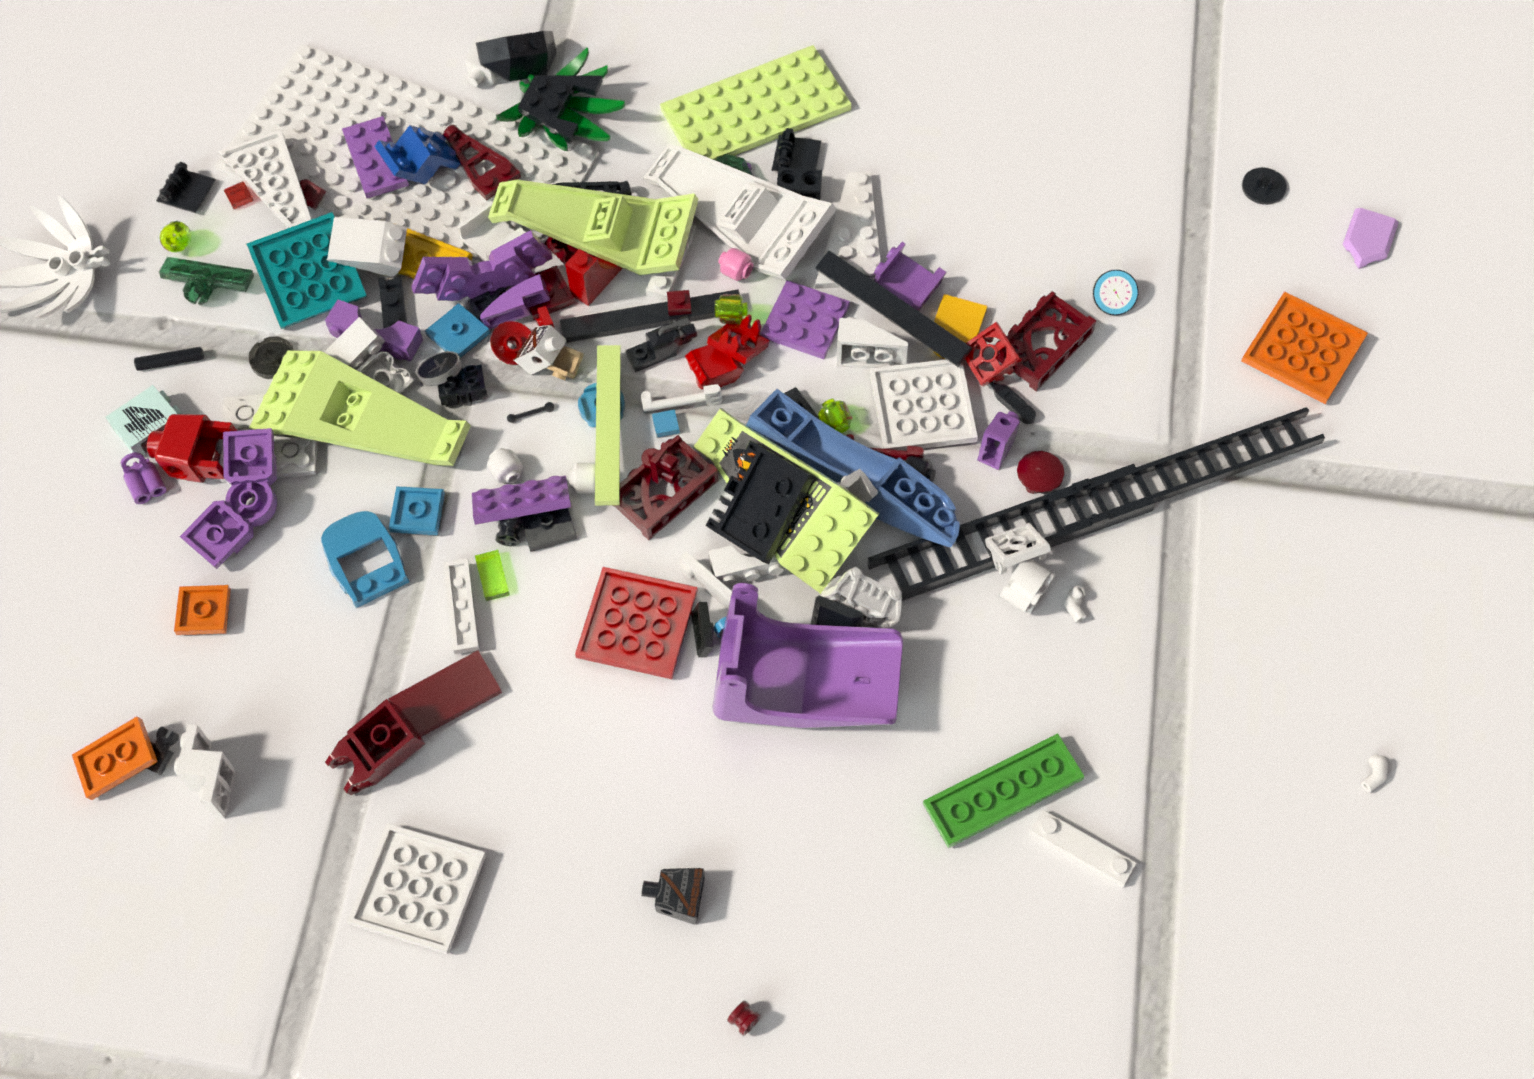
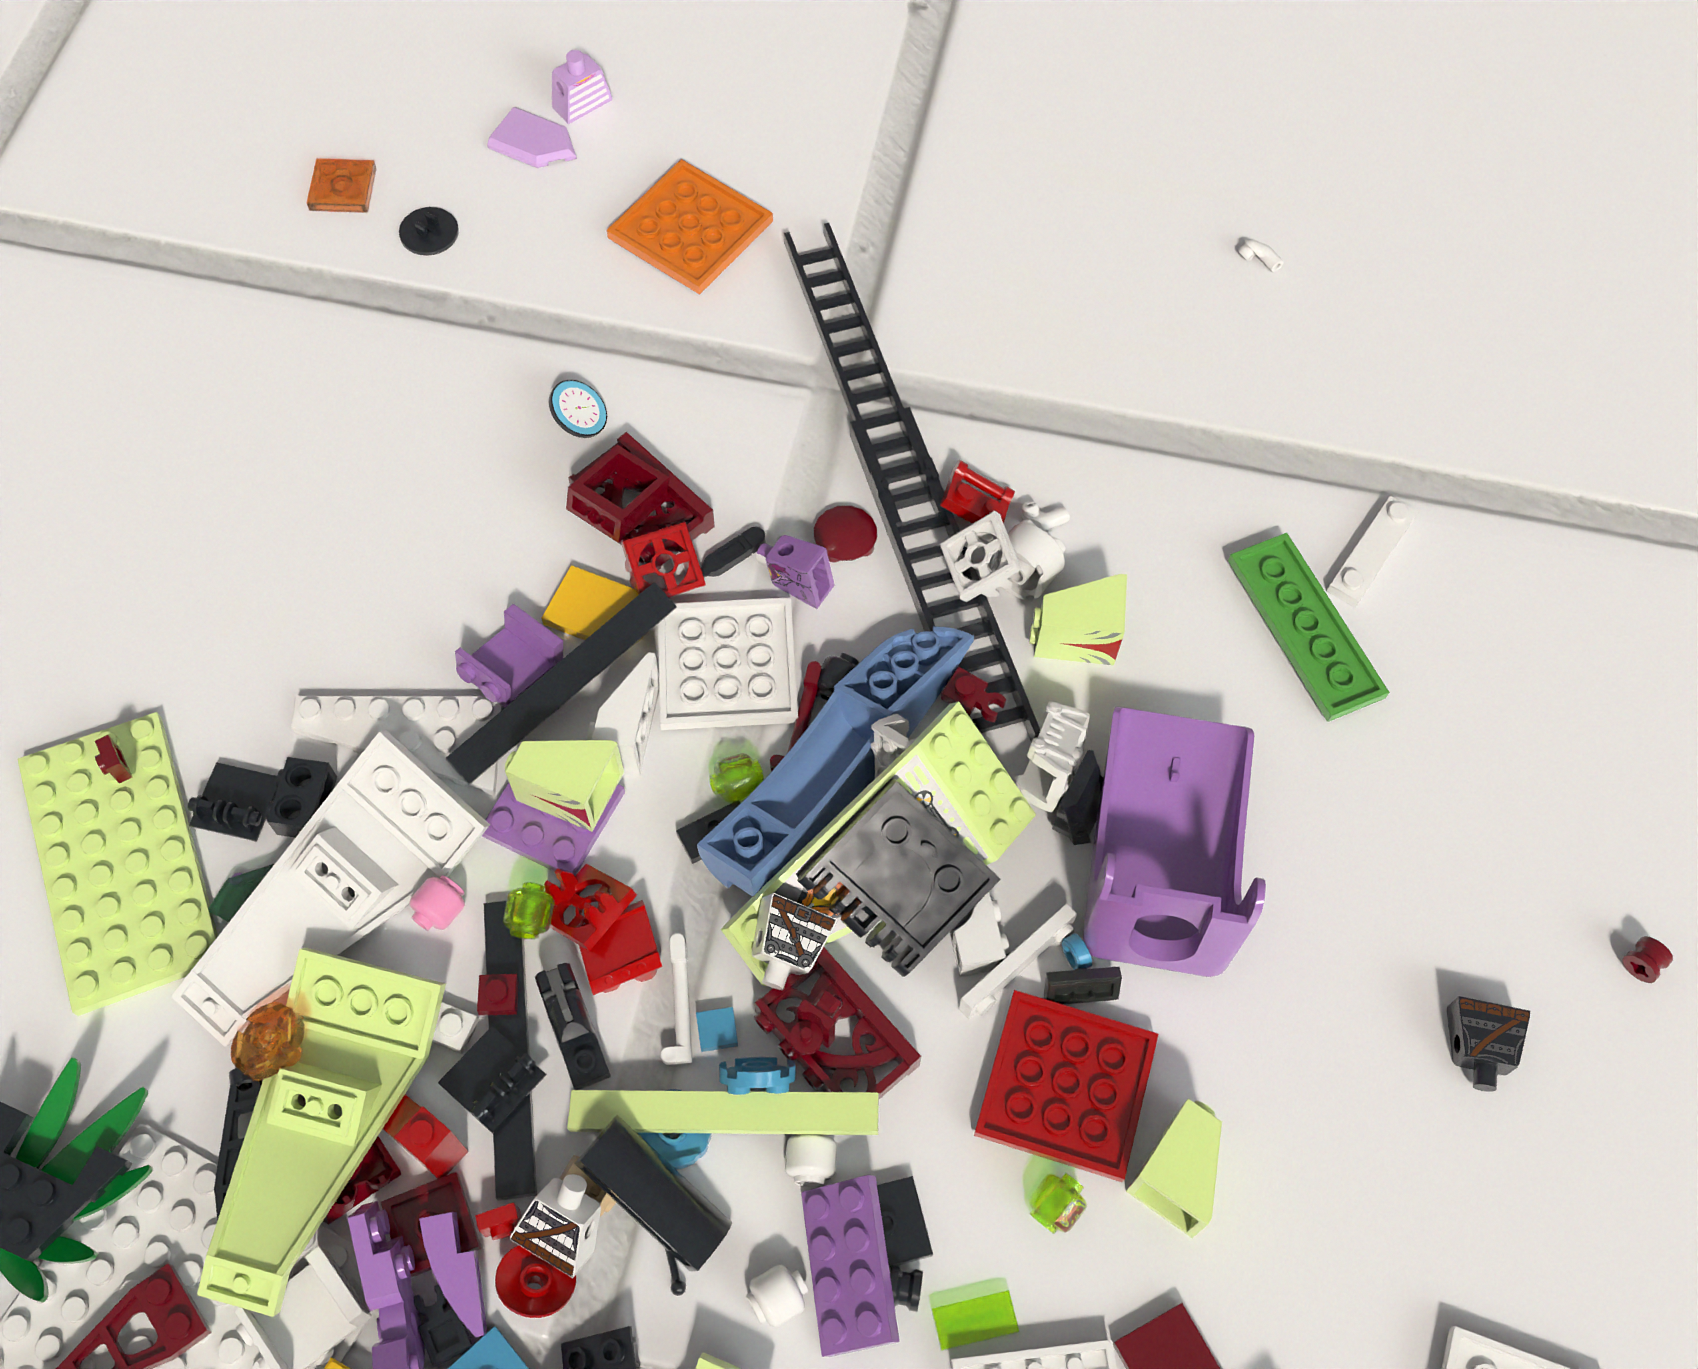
camera: 90 degrees left, 0 degrees up
(559, 392) = (654, 1194): none -> black brick
(560, 615) = (1057, 1202): none -> clear neon green head
(579, 682) = (1182, 1169): none -> yellowish green slope
(626, 306) = (492, 1079): none -> black hinge
(631, 440) = (757, 1073): none -> dark azure plate
(640, 191) = (257, 1053): none -> clear orange plate
(715, 443) = (788, 938): none -> torso
(811, 85) = (112, 759): none -> dark red plate
(813, 312) = (566, 777): none -> yellowish green slope
(909, 548) = (972, 694): none -> dark red plate
(979, 623) = (1082, 622): none -> yellowish green slope
(1030, 332) = (613, 520): none -> dark red window
(1072, 549) = (971, 503): none -> red plate
(1292, 127) = (341, 185): none -> clear orange plate
(1423, 256) = (578, 87): none -> lavender torso

